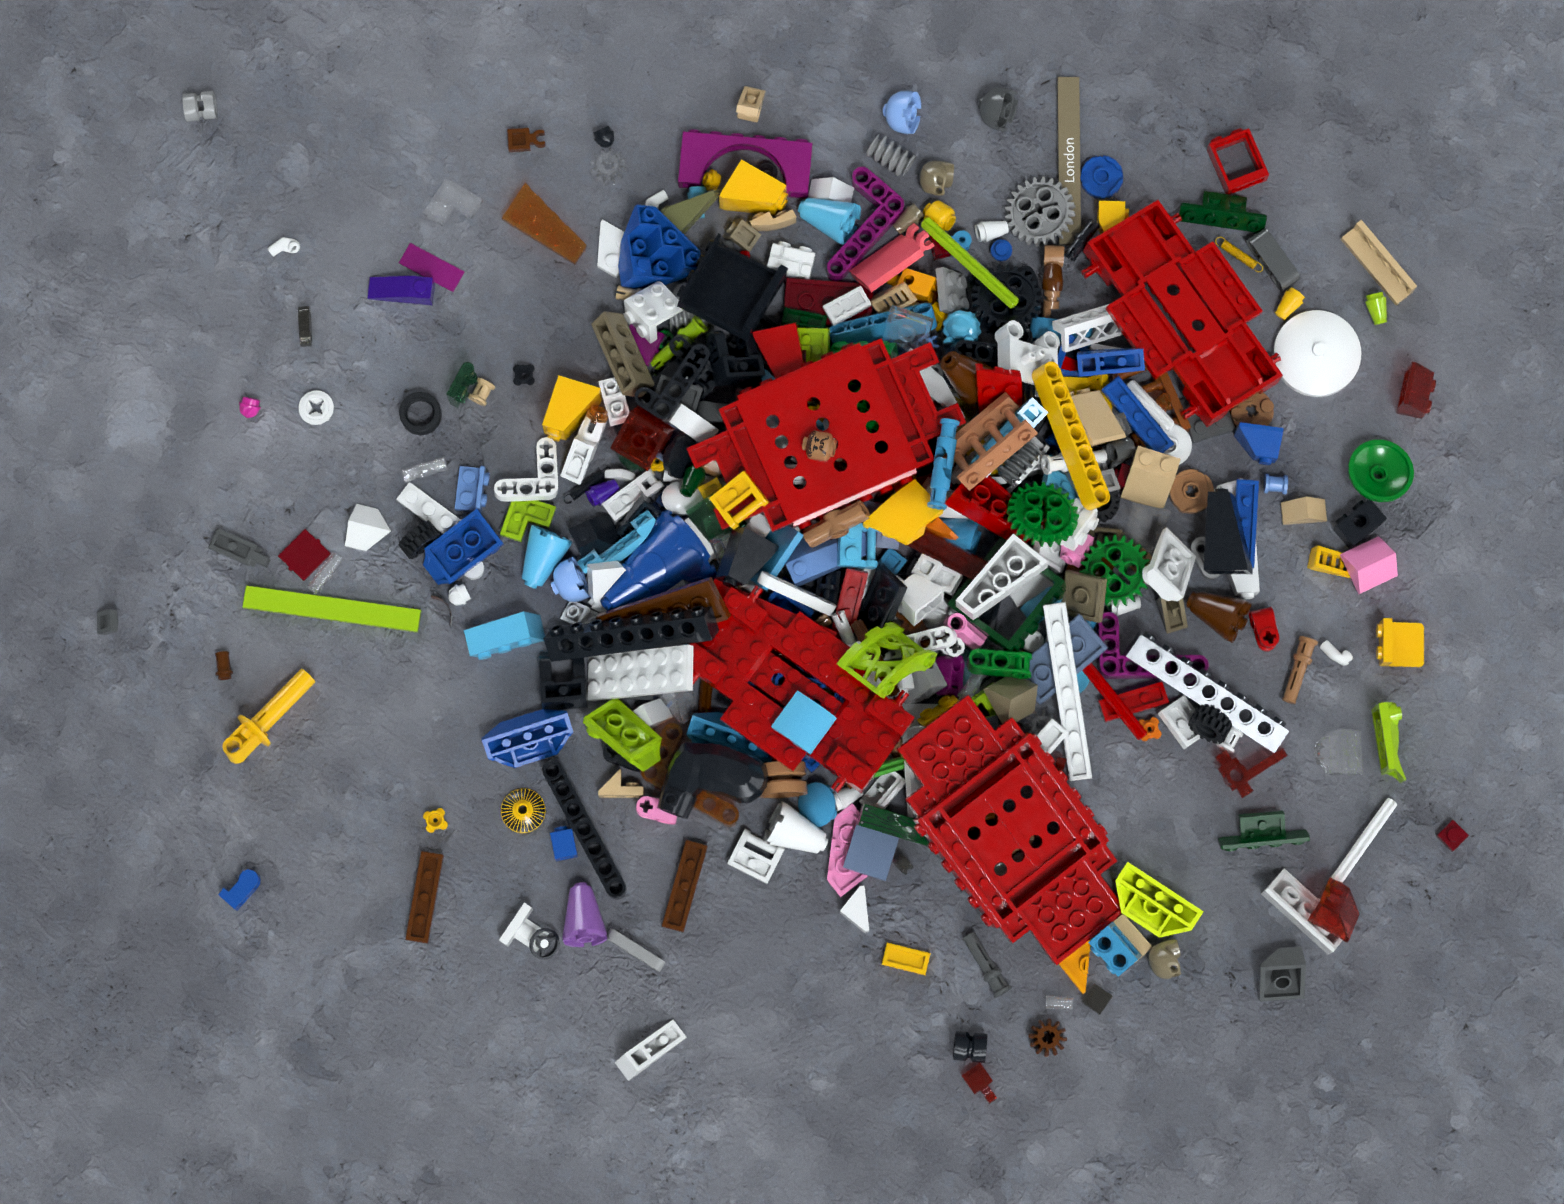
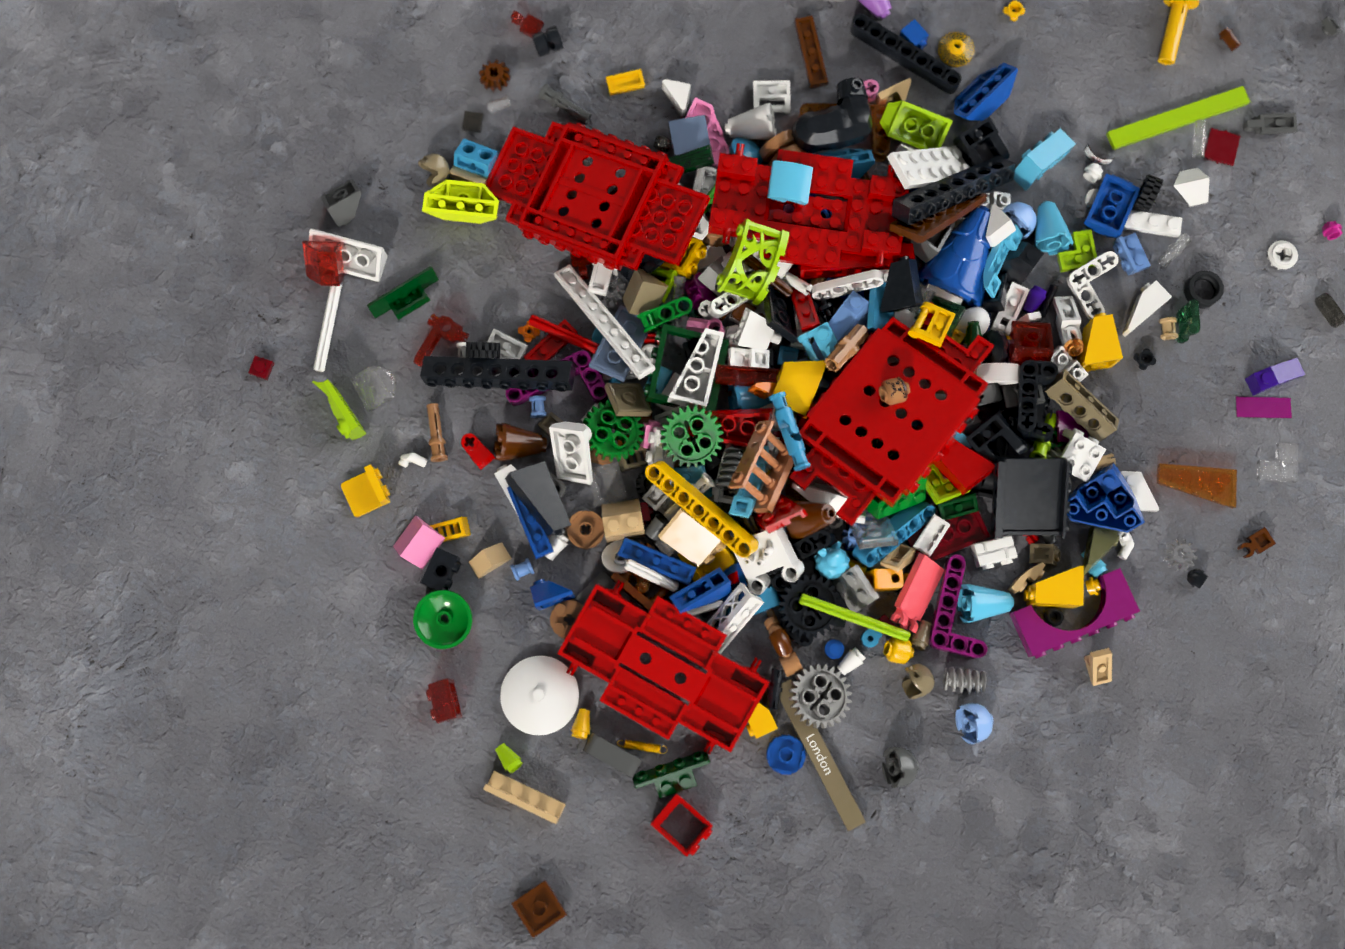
camera: 155 degrees right, 0 degrees up
(490, 426) = (1150, 300): none -> white slope
(830, 189) = (993, 626): white slope -> none
(1077, 965) = (497, 135): light orange tile -> none
(1180, 641) = (537, 406): none -> medium blue bush
(1413, 155) = (539, 909): none -> reddish brown plate

